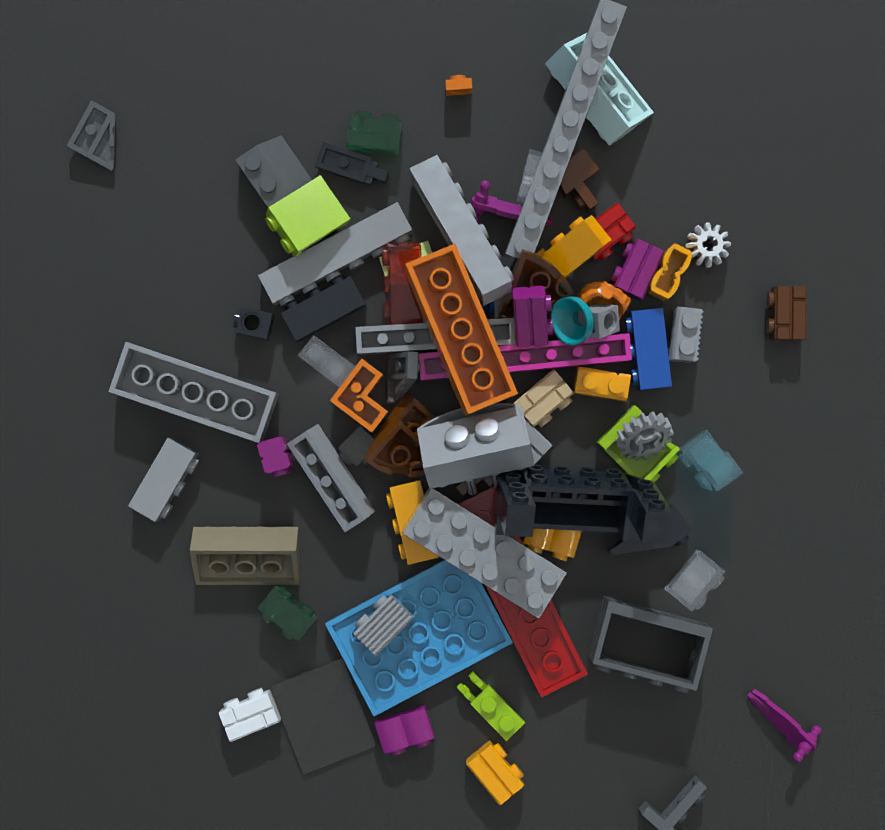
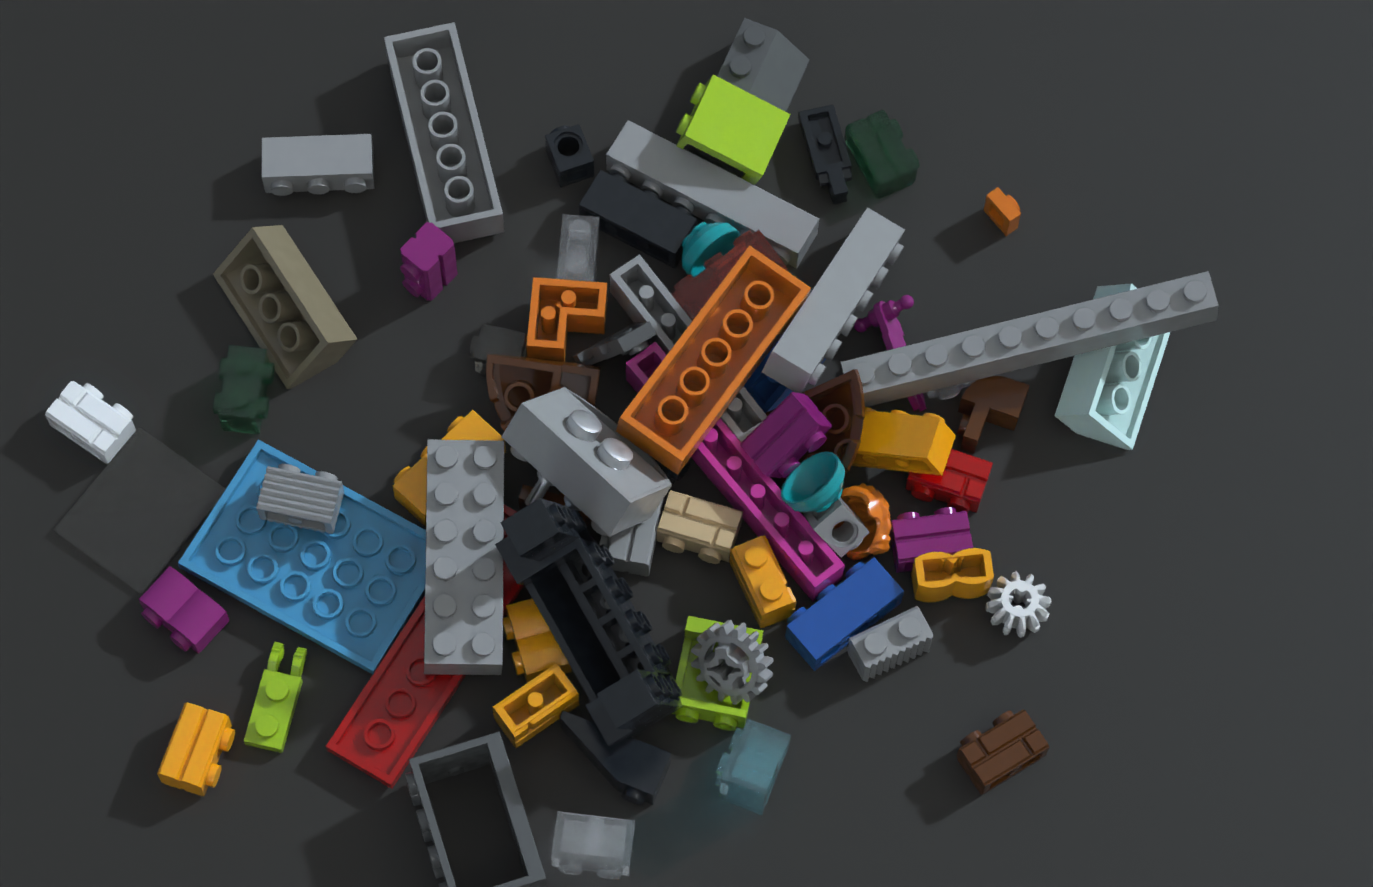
camera: 50 degrees right, 20 degrees down
(331, 477) = (441, 340): light grey brick -> none
(371, 281) = (706, 242): none -> teal piece
(595, 563) = (535, 705): none -> light orange brick

